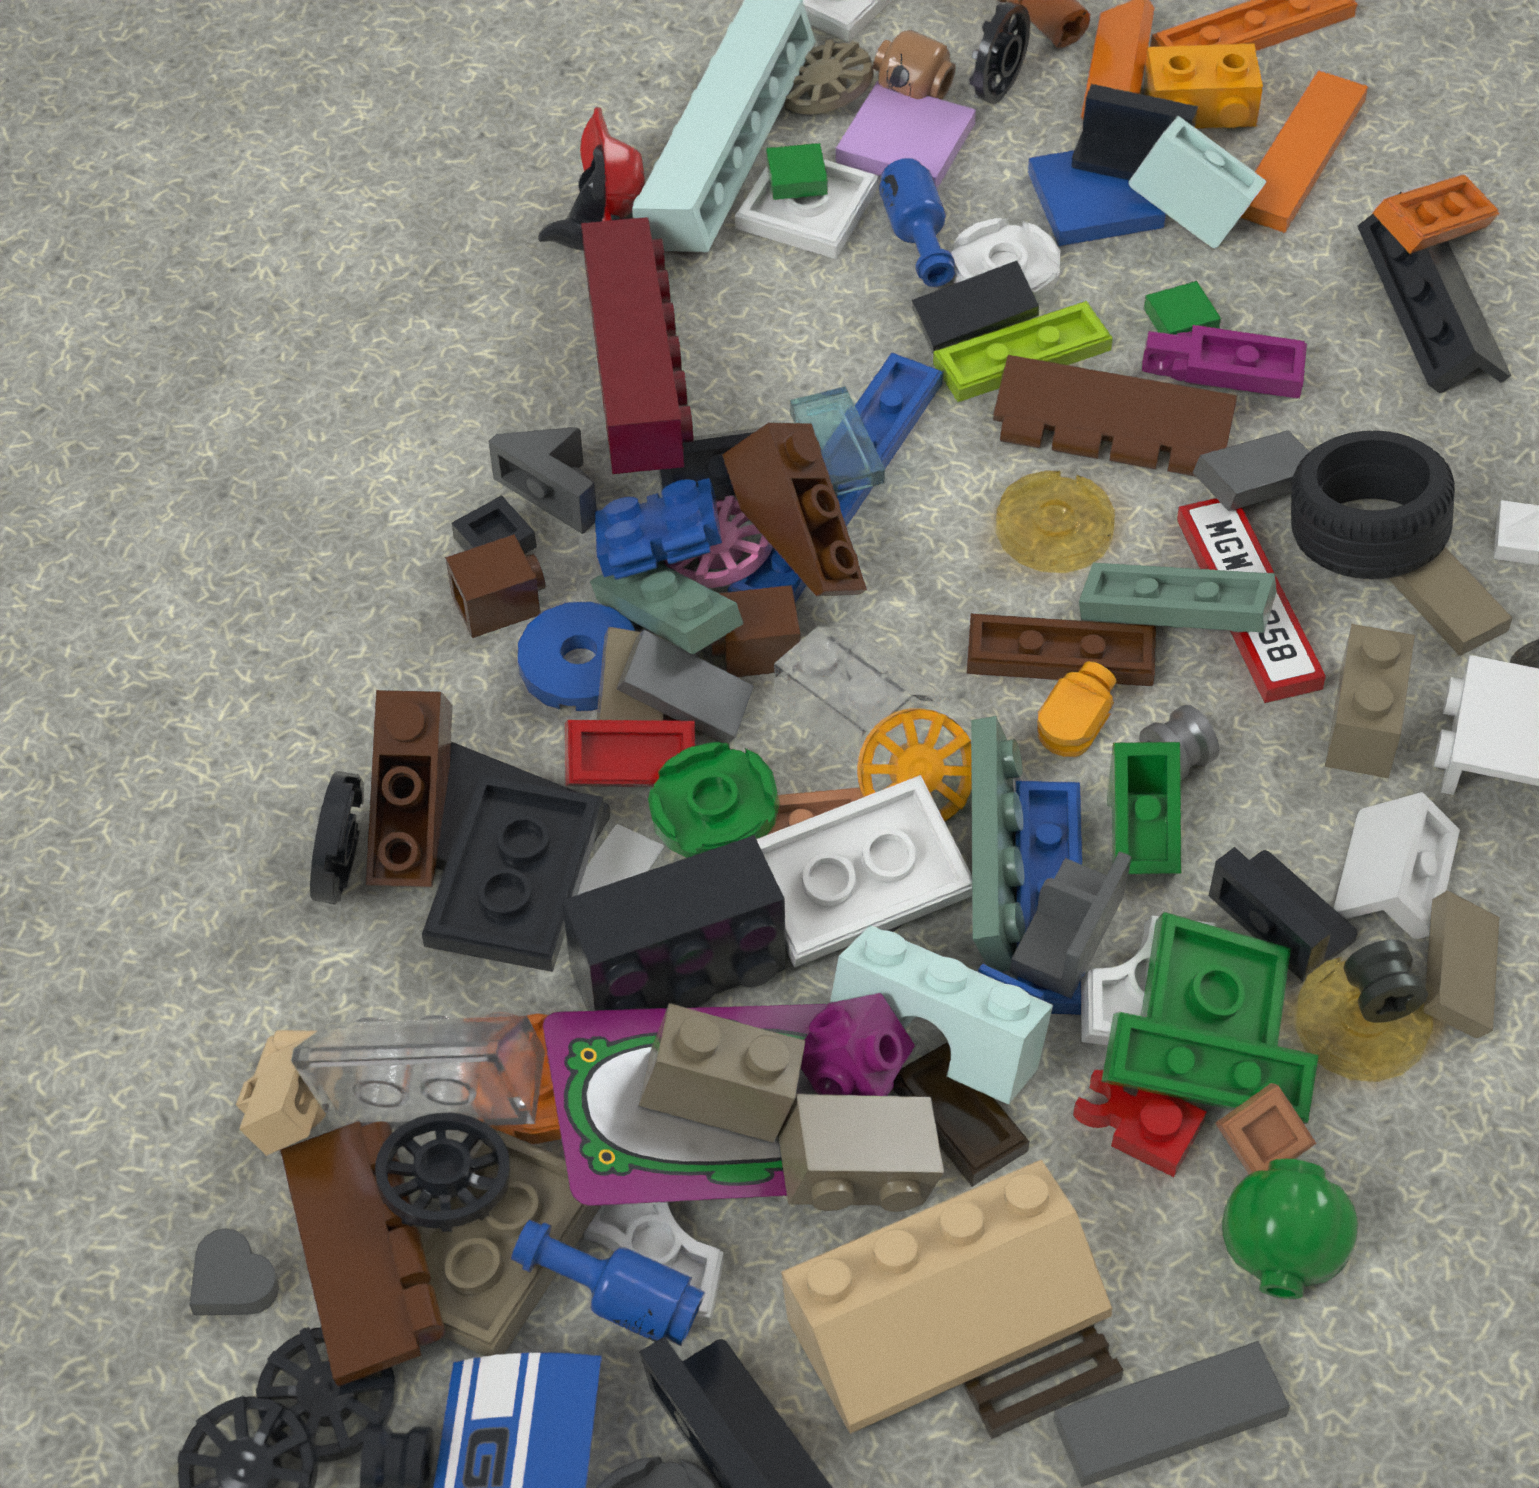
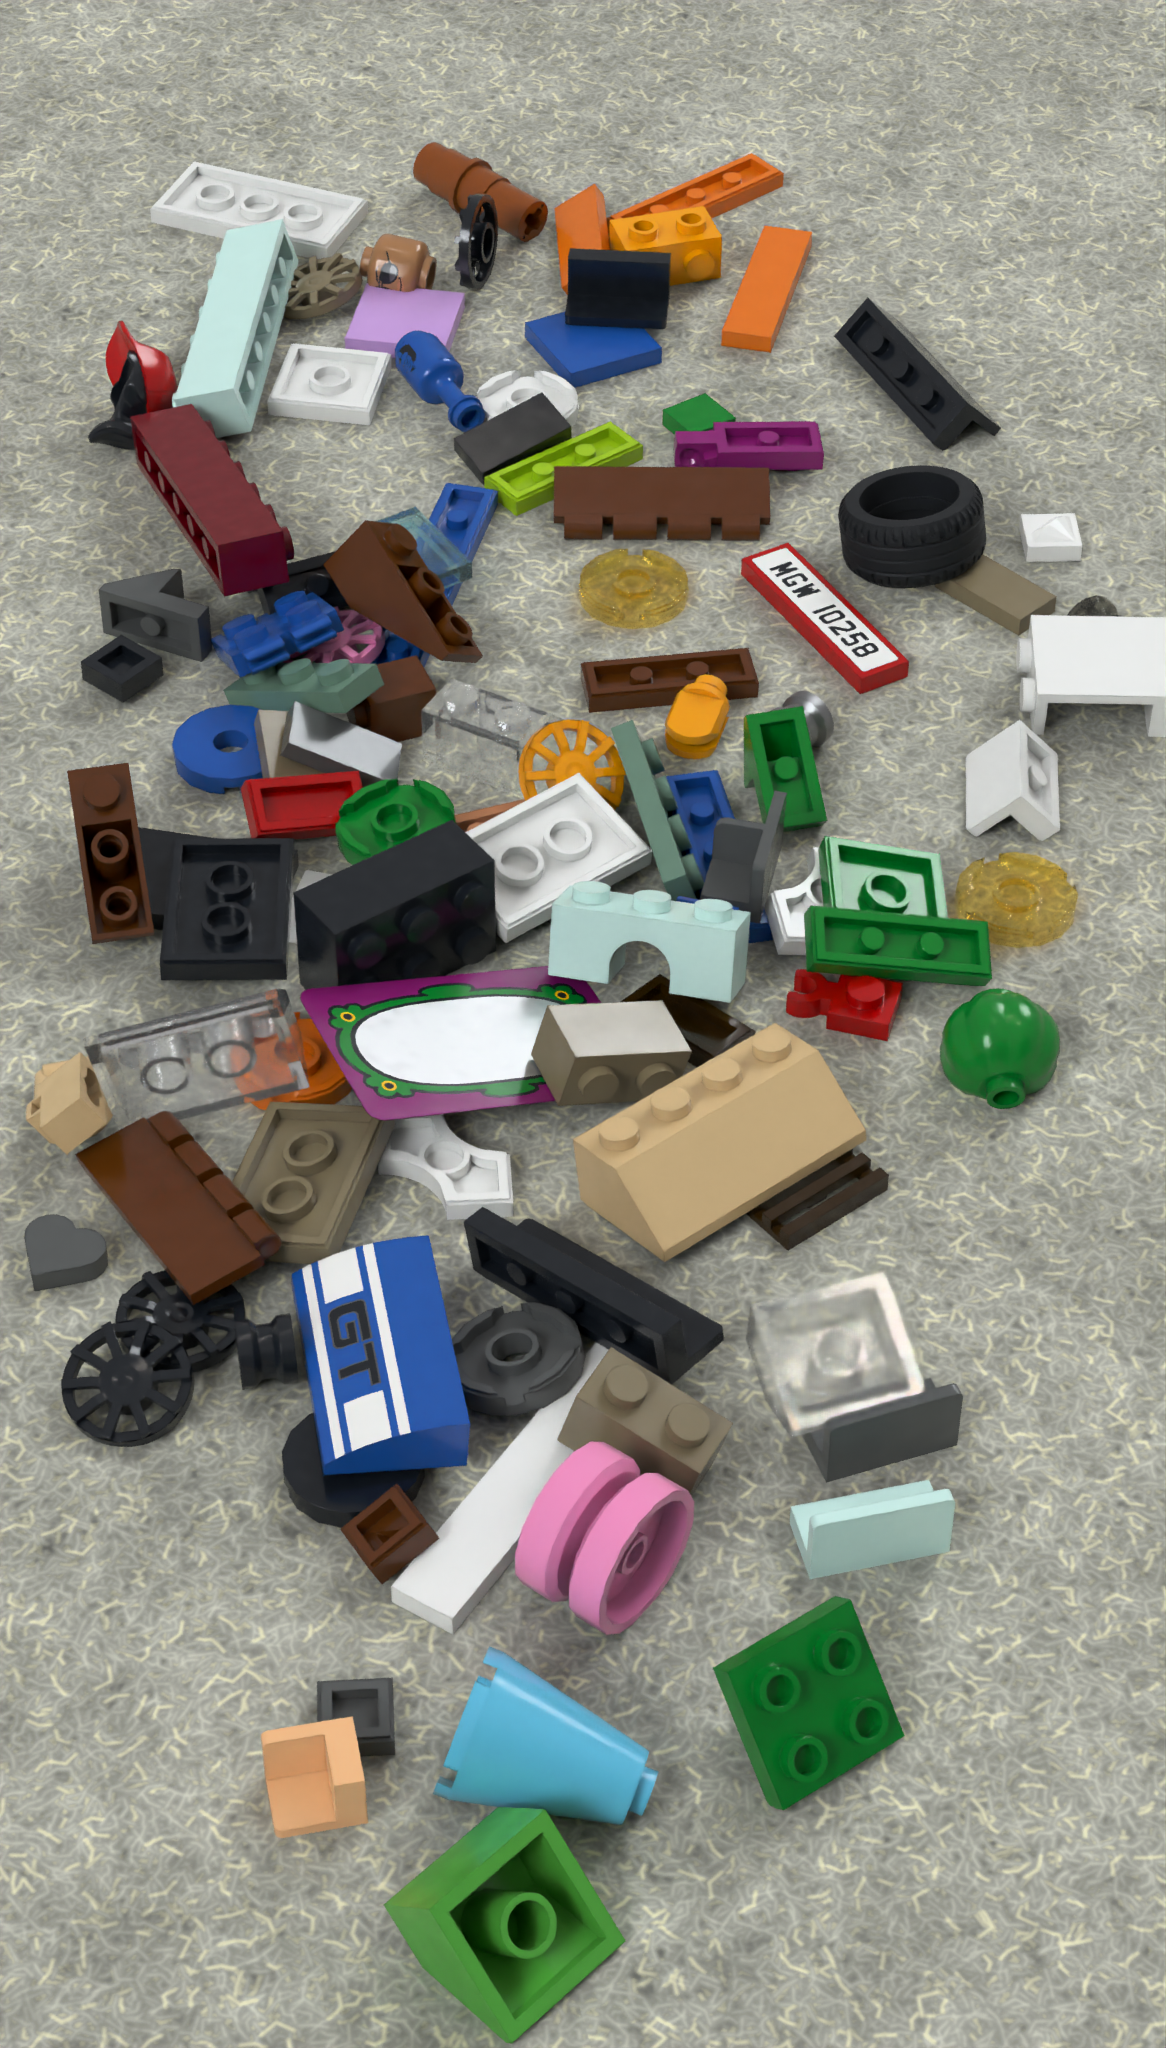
camera: 15 degrees left, 10 degrees down
(336, 838) = (58, 902): black tile -> none
(442, 1171) = (239, 1127): black wheel -> none
(495, 585) = (136, 704): reddish brown brick -> none
(624, 1287) = (435, 1180): blue piece -> none
(722, 1073) = (474, 1005): dark tan brick -> none
(796, 171) = (316, 357): green tile -> none
(855, 1048) = (583, 971): magenta brick -> none
(1170, 1413) = (937, 1201): dark grey tile -> none
(1178, 597) = (763, 619): sand green plate -> none
(1196, 182) = (683, 317): light aqua panel -> none
(1251, 469) = (797, 522): dark grey tile -> none
(1265, 1130) = (955, 981): nougat tile -> none
(1280, 909) = (898, 822): black panel -> none
(1370, 701) = (953, 669): dark tan brick -> none
(1385, 981) = (1029, 857): pearl dark grey wheel -> none
(1436, 213) = (903, 309): orange tile -> none
(1462, 964) = (1088, 845): dark tan tile -> none

